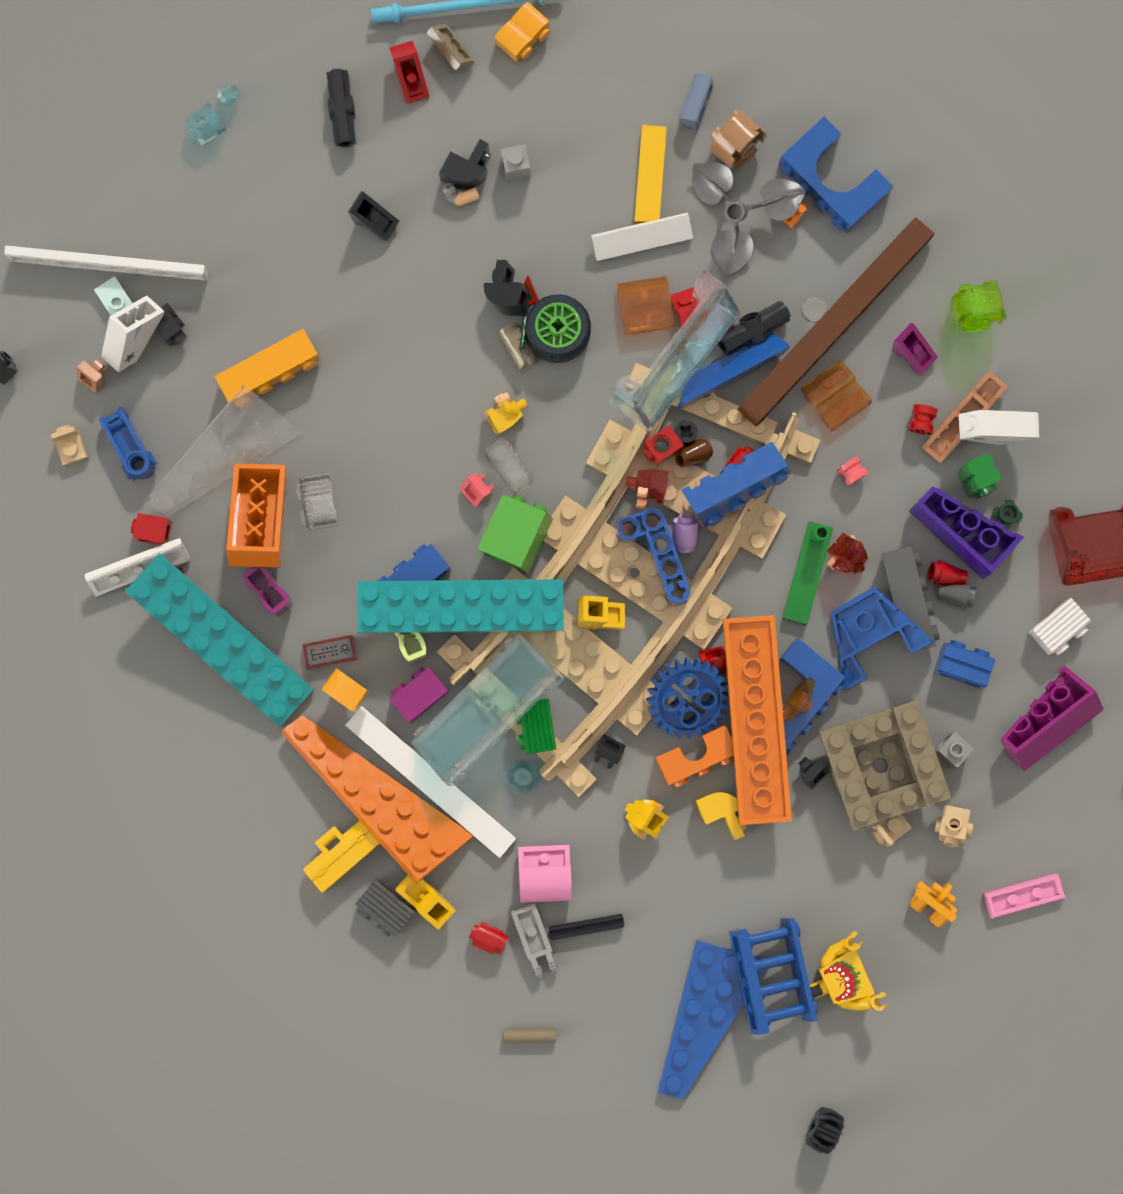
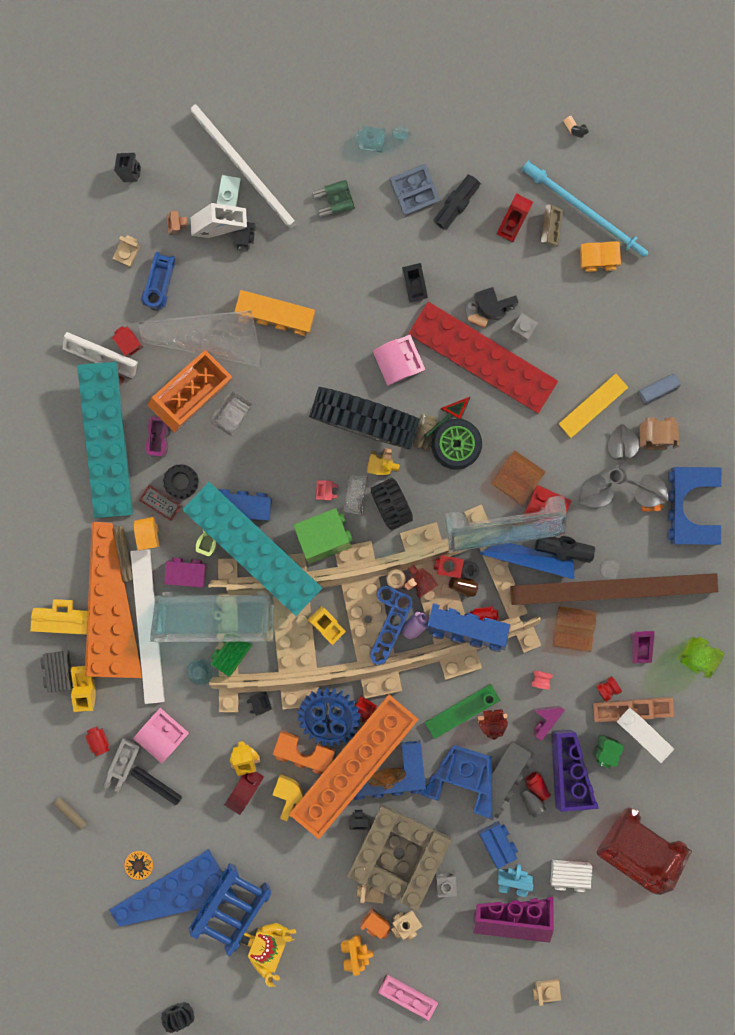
camera: 45 degrees right, 5 degrees up
(225, 208) = (338, 198): none -> clear green piece
(289, 133) = (414, 189): none -> sand blue slope
(330, 628) = (169, 486): none -> black tyre
(340, 735) = (123, 554): none -> dark tan axle
(427, 303) = (398, 360): none -> bright pink brick
(447, 377) = (364, 417): none -> black wheel
(504, 227) = (483, 357): none -> red plate
(507, 296) = (444, 395): black brick -> none
(551, 439) = (391, 504): none -> black tyre
(623, 506) = (396, 578): none -> tan tile
(642, 236) = (553, 436): white tile -> none
(644, 1022) = (138, 865): none -> piece
(676, 849) = (243, 792): none -> dark red brick
(895, 498) = (550, 716): none -> magenta slope
(926, 854) = (376, 924): none -> orange brick
(1009, 506) = (604, 790): dark green plate -> none
(1011, 681) = (516, 879): none -> medium azure hips

